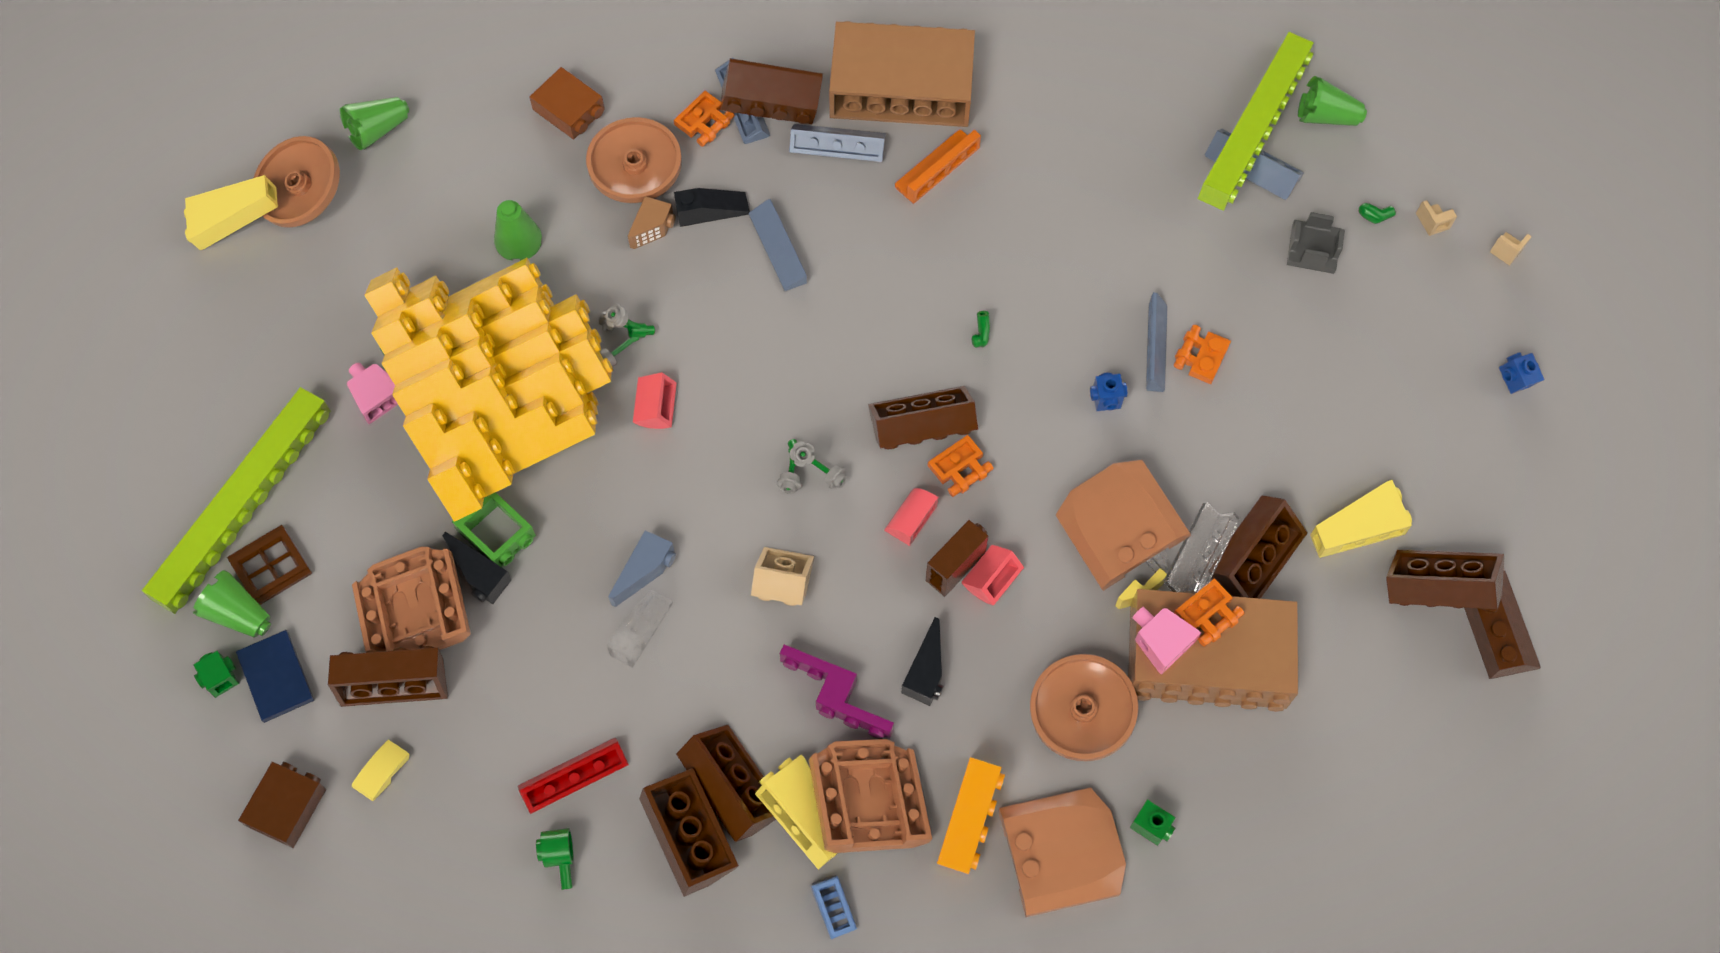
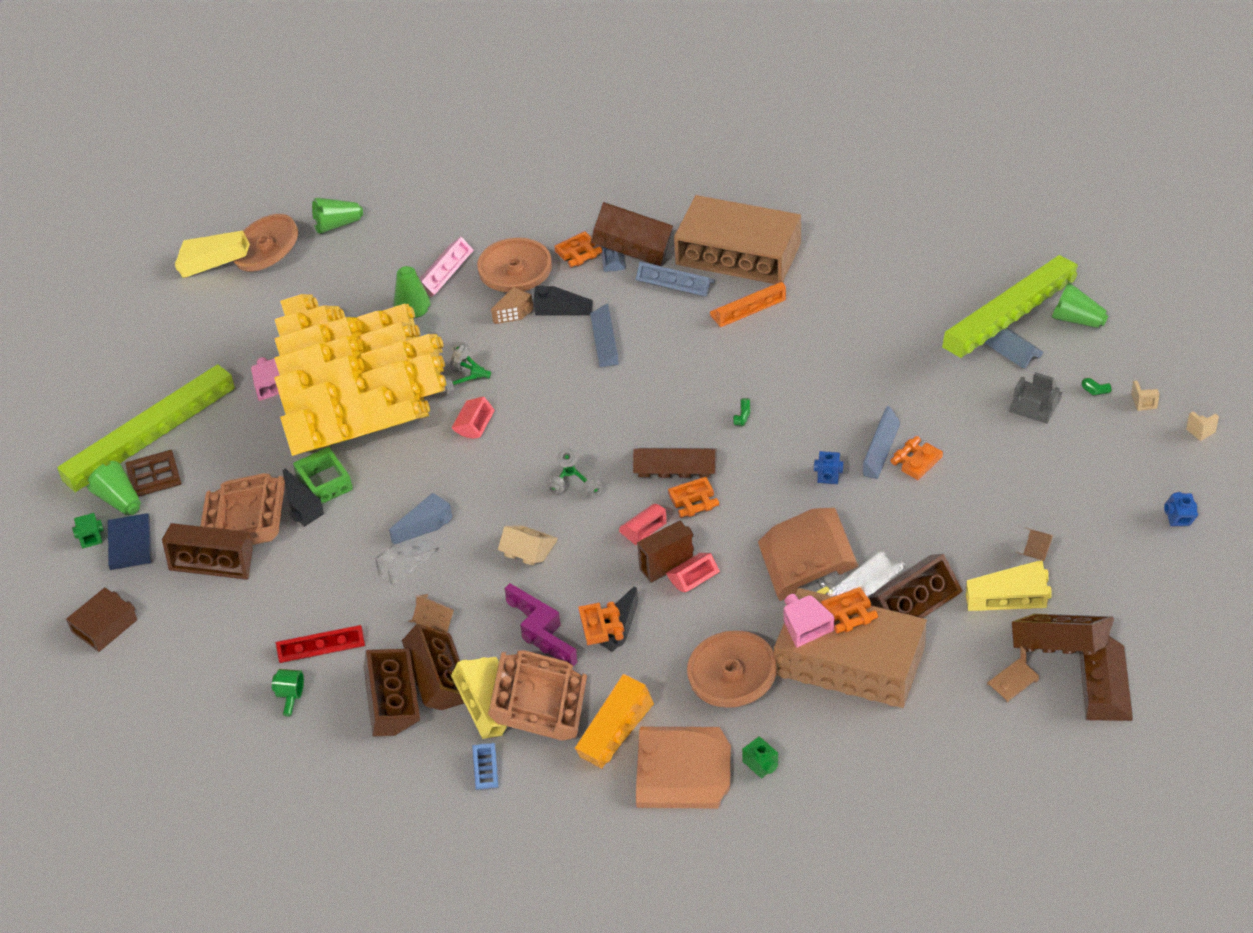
camera: 20 degrees right, 20 degrees down
(379, 769) = (176, 614): light yellow slope -> none
(542, 174) = (445, 266): none -> bright pink panel
(567, 103) = (479, 225): dark orange brick -> none
(699, 706) = (432, 614): none -> medium nougat piece
(908, 687) = (594, 626): none -> orange plate
(1380, 458) = (1037, 545): none -> medium nougat piece
(1398, 643) = (1014, 678): none -> medium nougat piece

